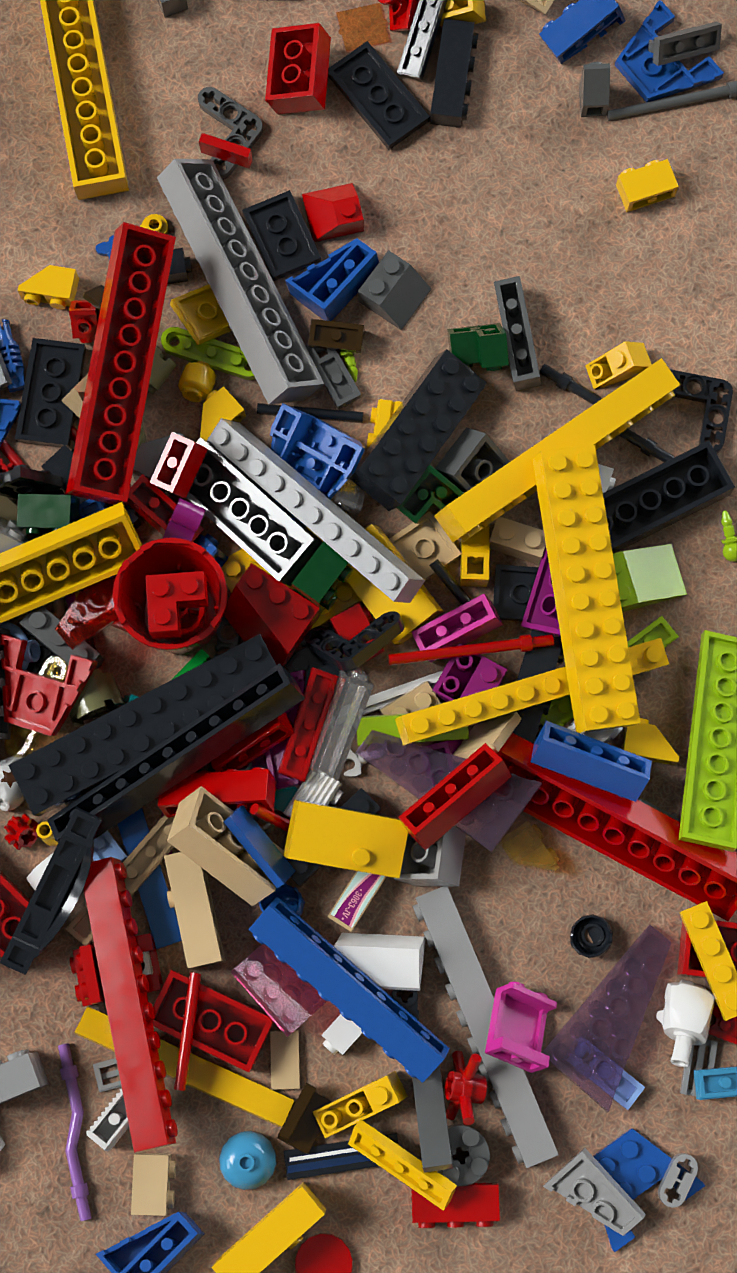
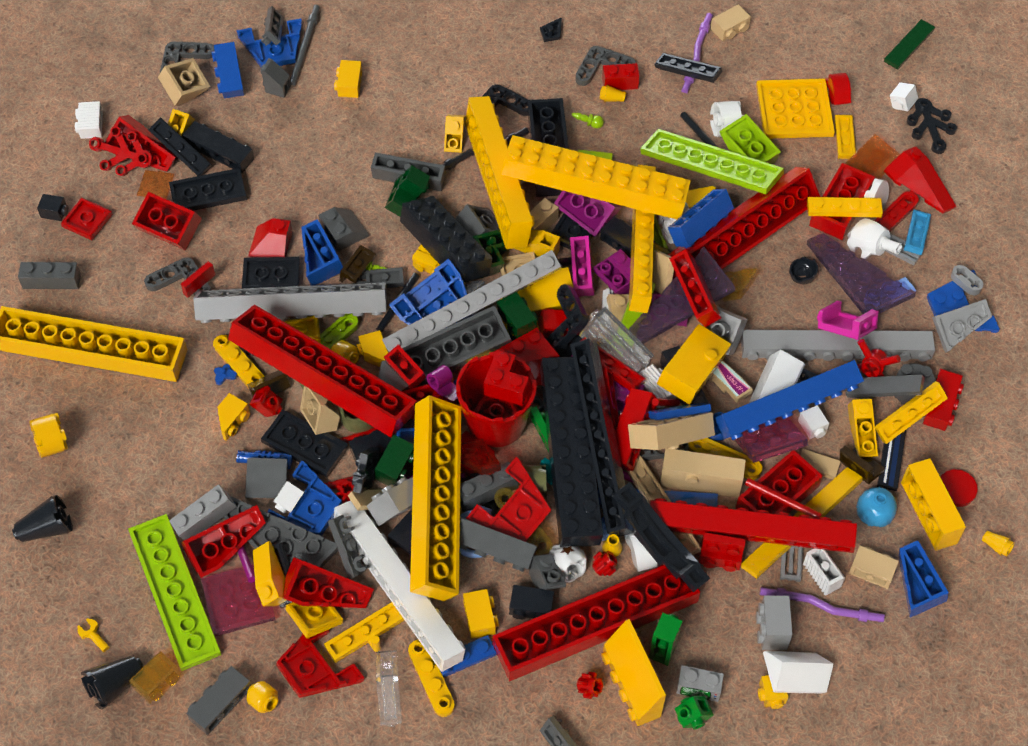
camera: 70 degrees left, 20 degrees down
(240, 939) = (712, 447): none -> yellow plate
(523, 643) = (608, 234): red bar -> none

